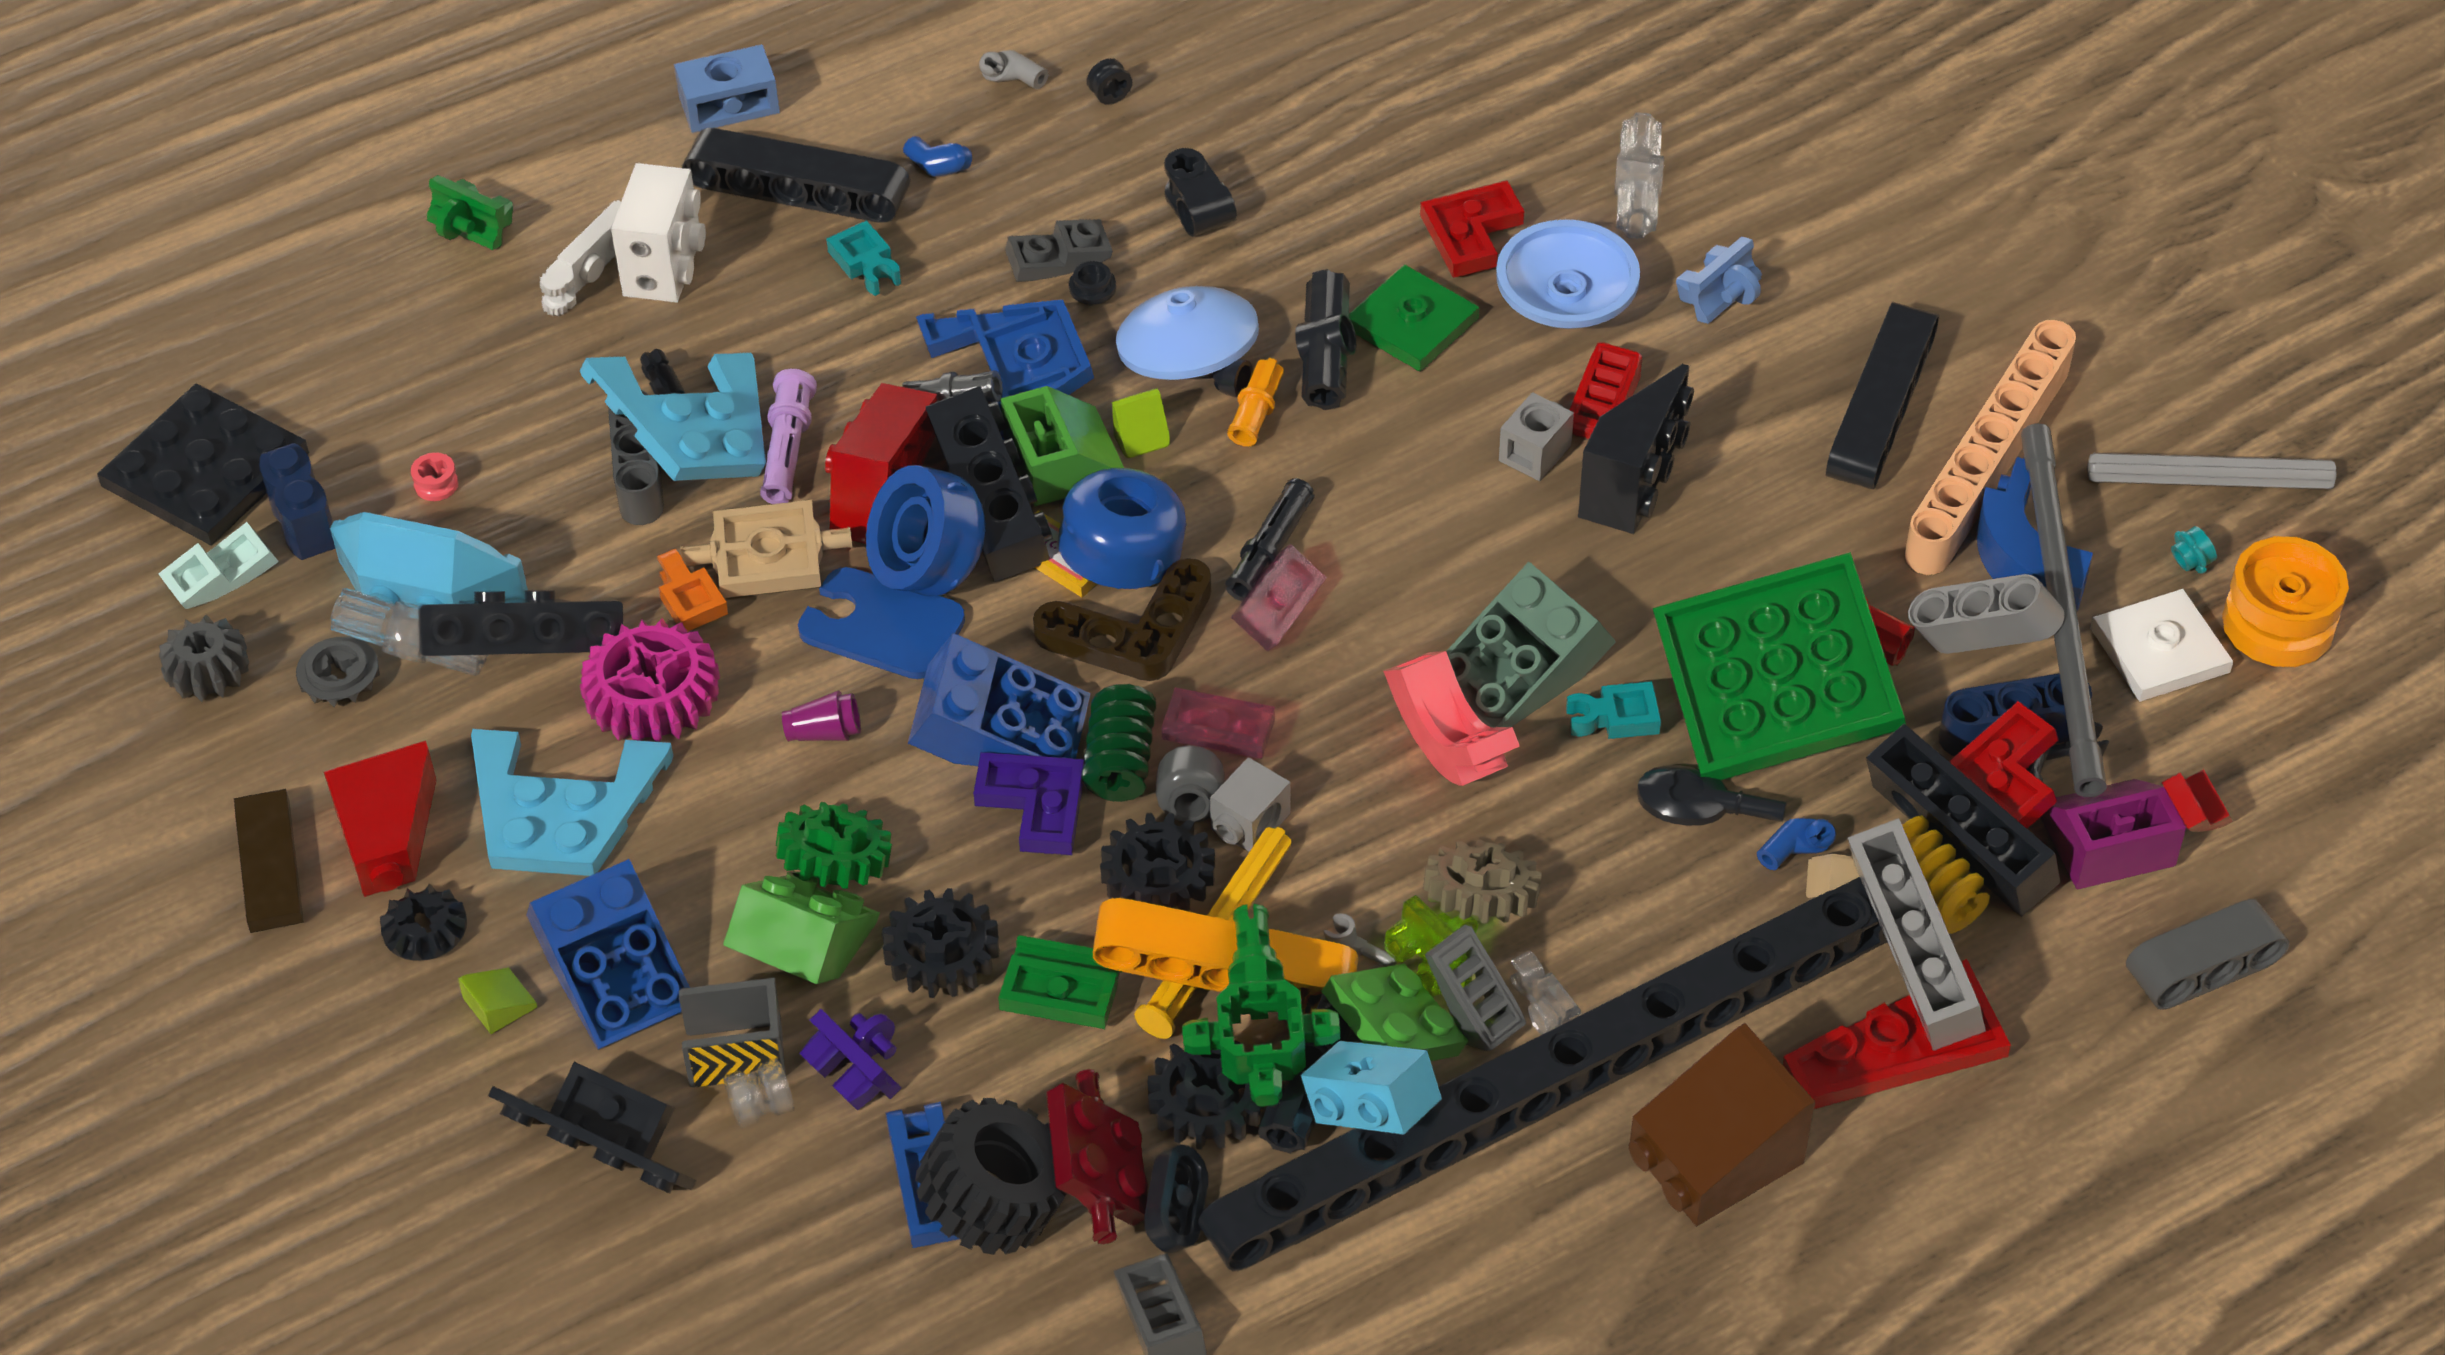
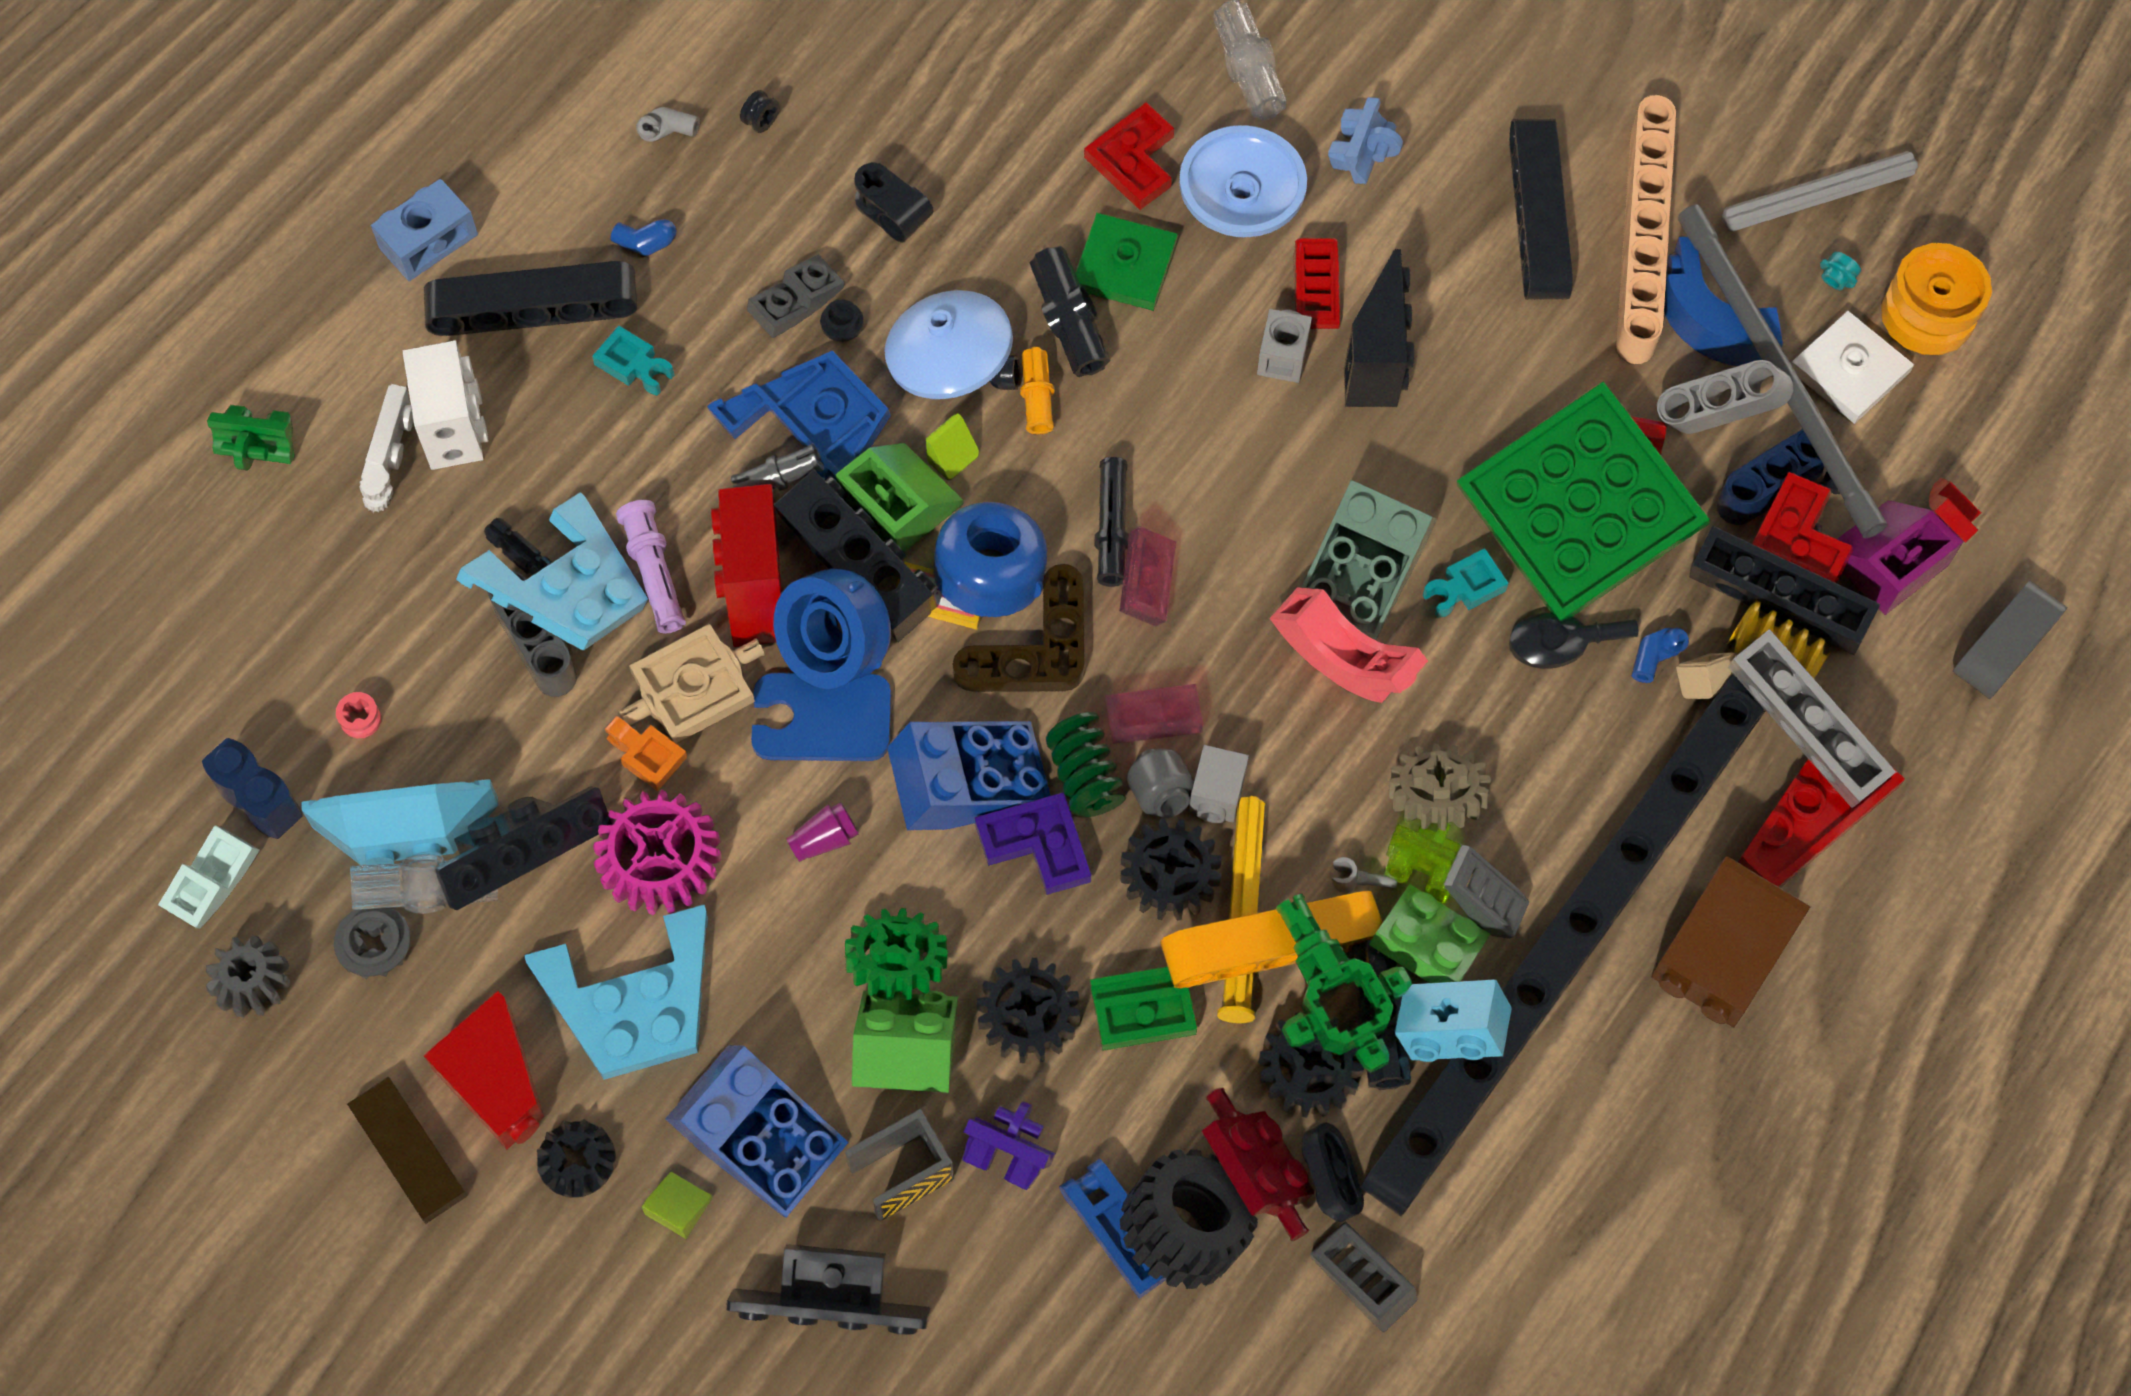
camera: 25 degrees left, 15 degrees up
(197, 463) = (137, 776): black plate -> none
(747, 1098) = (947, 1210): clear wheel -> none
(1549, 1000) = (1541, 879): clear plate -> none

